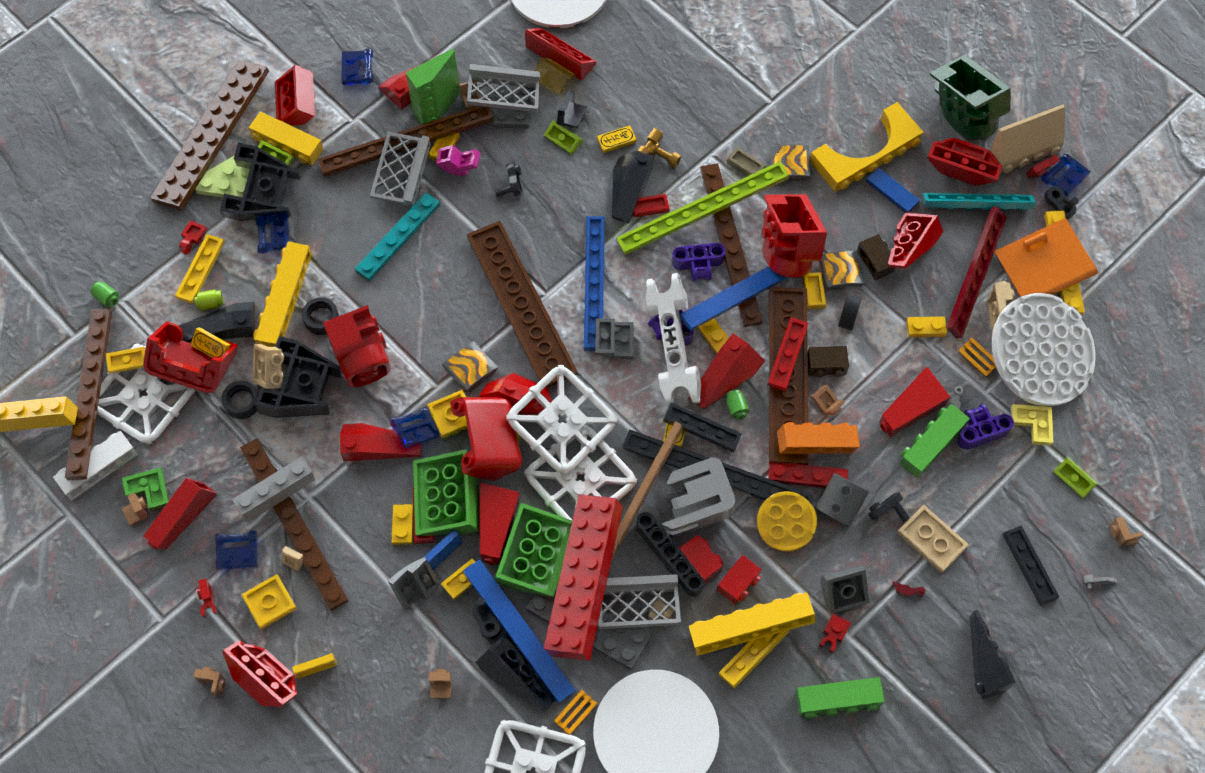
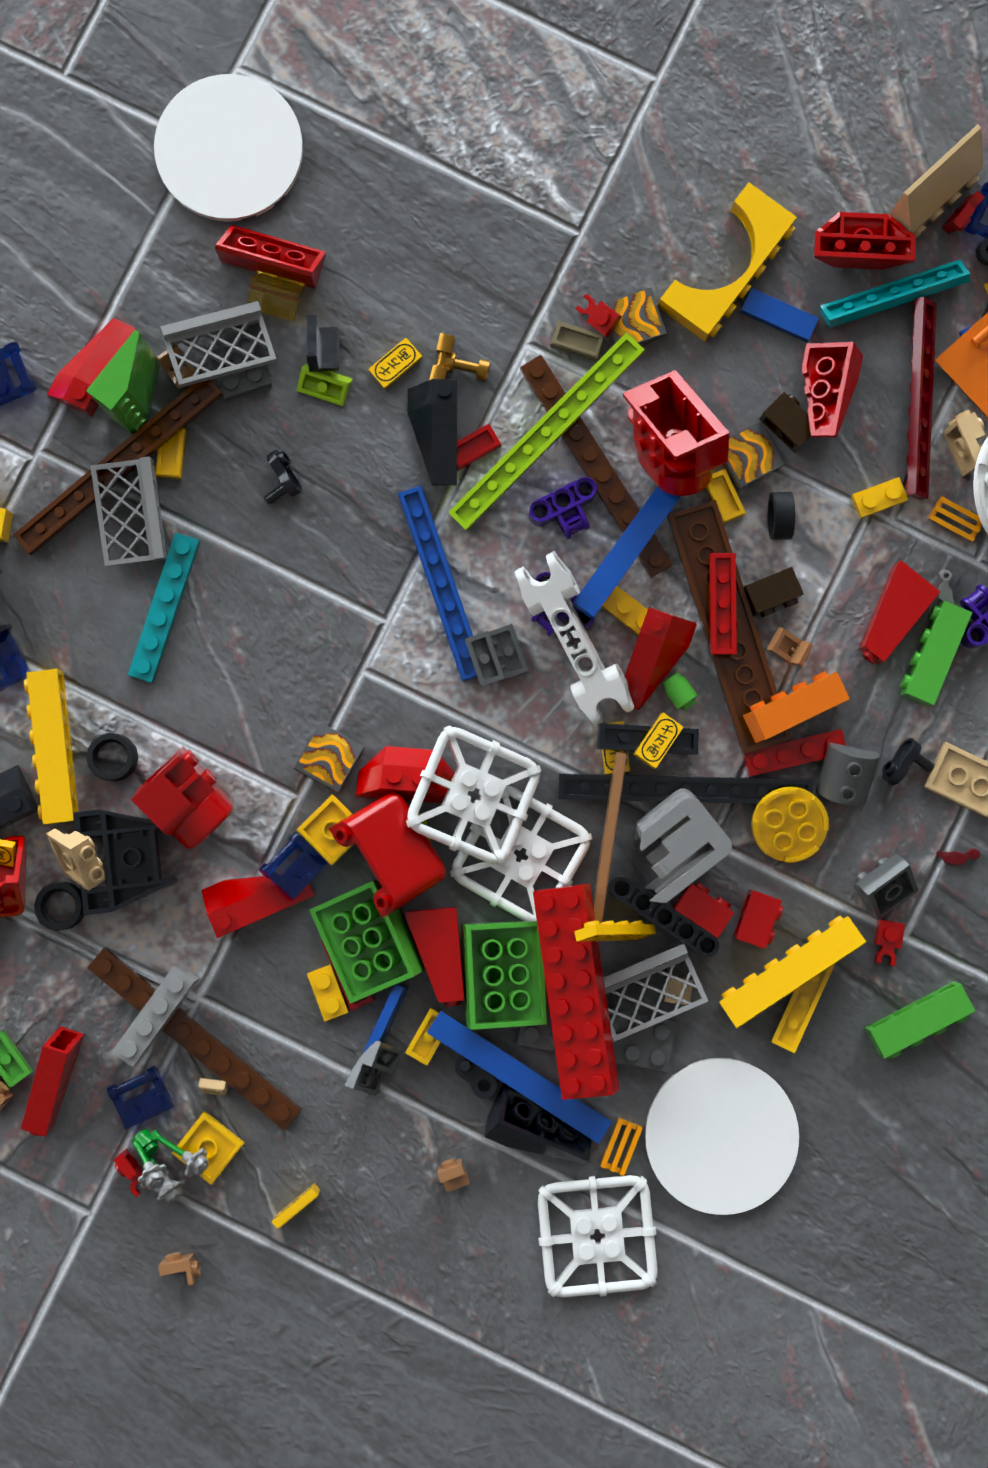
camera: 25 degrees left, 20 degrees up
(223, 595) = (157, 1176): none -> light grey plant
(260, 674) = (239, 1240): red wedge -> none
(457, 162) = (199, 474): dark pink brick -> none
(520, 301) = (358, 645): reddish brown plate -> none
(628, 541) = (614, 931): none -> yellow plate
(708, 428) = (658, 740): none -> yellow tile
(767, 151) = (601, 316): none -> red plate
(971, 97) = (845, 143): dark green brick -> none

